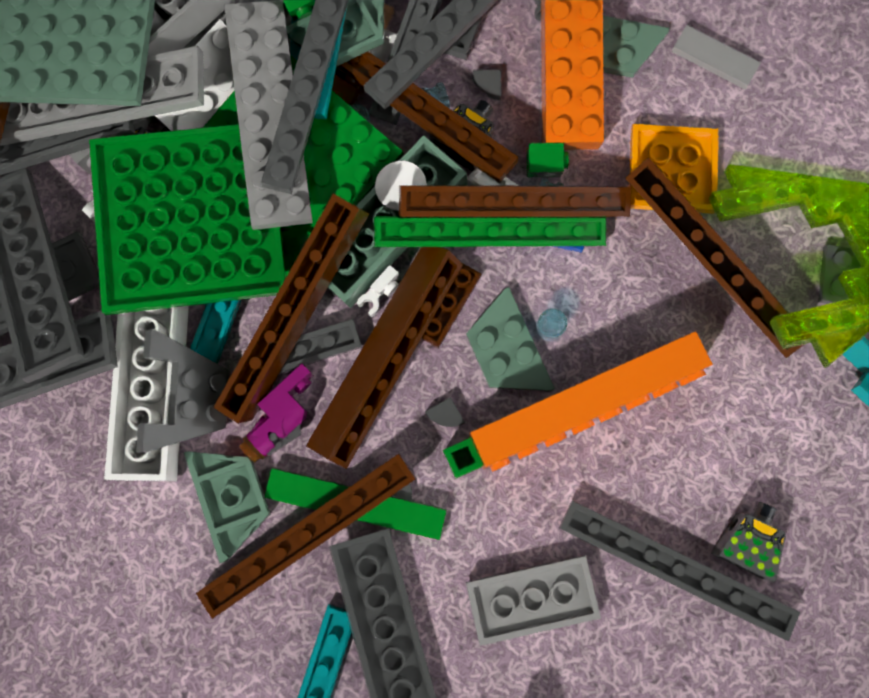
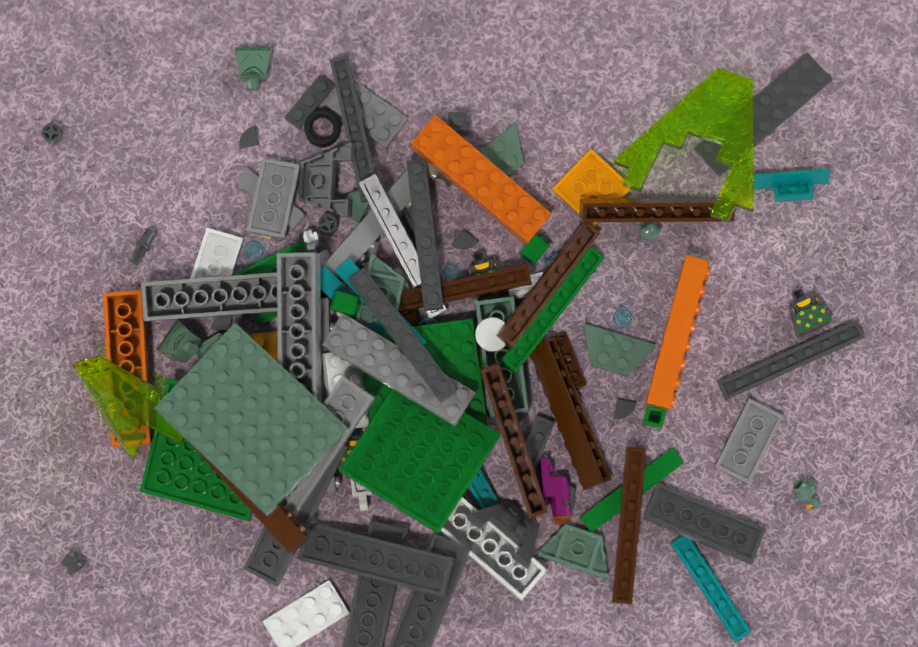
camera: 55 degrees left, 0 degrees up
(384, 285) = (532, 385): white plate -> none
(683, 267) = (648, 230): none -> sand green animal
(716, 57) = (549, 113): light grey tile -> none

